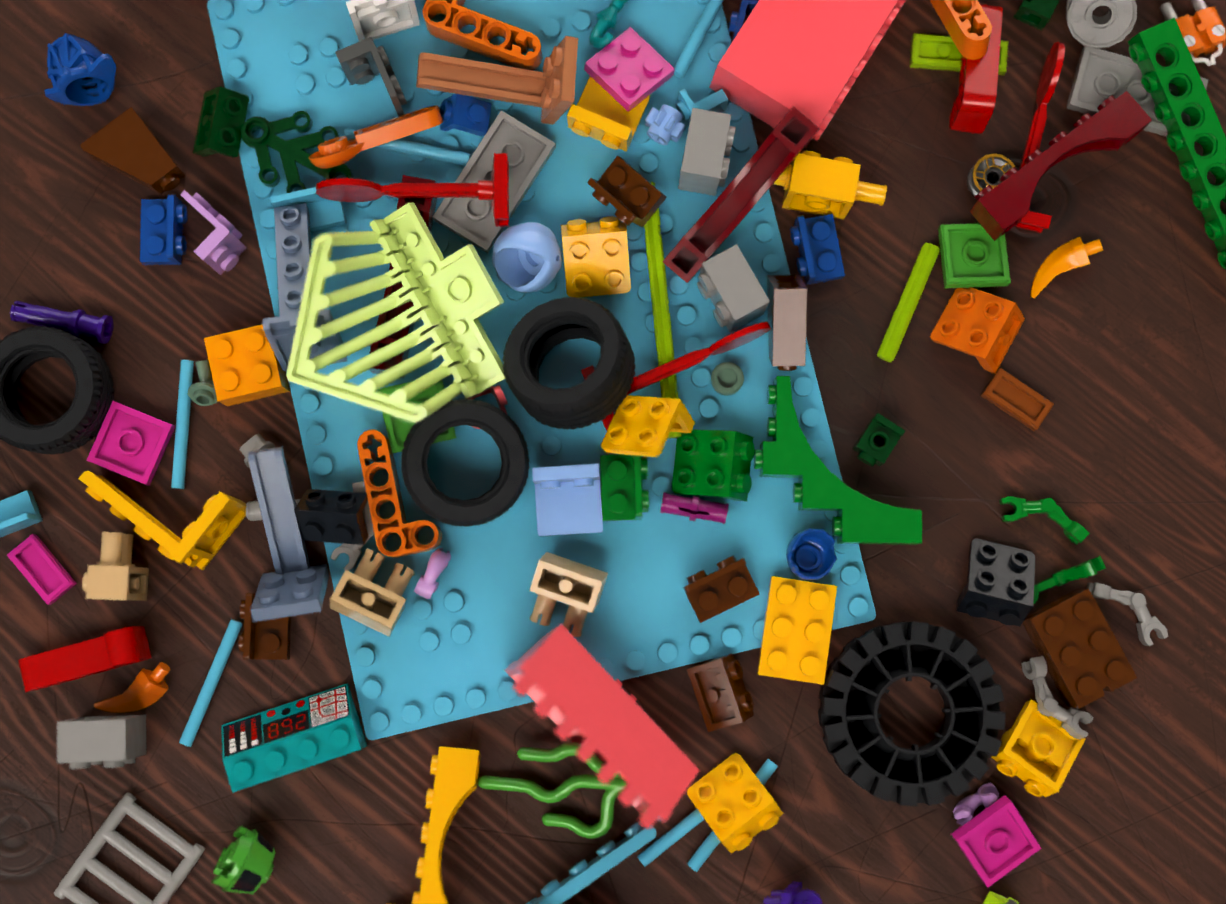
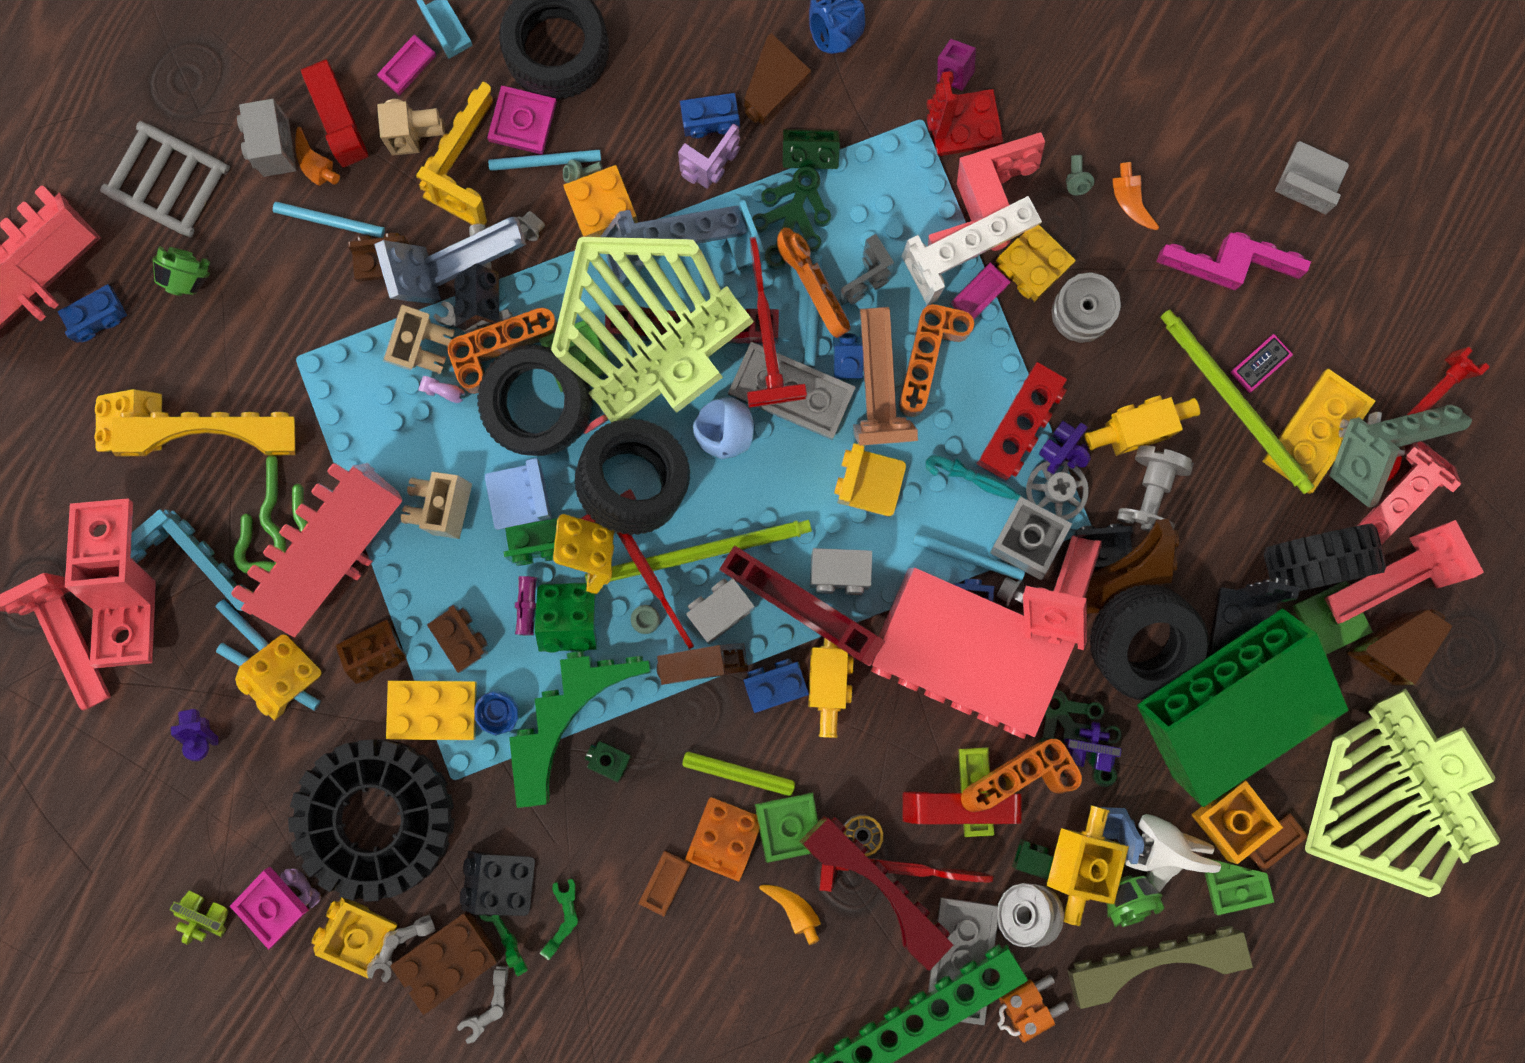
camera: 80 degrees right, 0 degrees up
(76, 322) = (618, 56): dark purple pin -> none
(291, 737) = (289, 293): teal slope -> none
(596, 257) = (737, 488): yellow bracket -> none
(628, 192) = (796, 507): reddish brown bracket -> none
(629, 69) = (910, 494): dark pink plate -> none
(664, 124) = (863, 532): light blue gear -> none
(715, 102) = (884, 570): medium azure bracket -> none

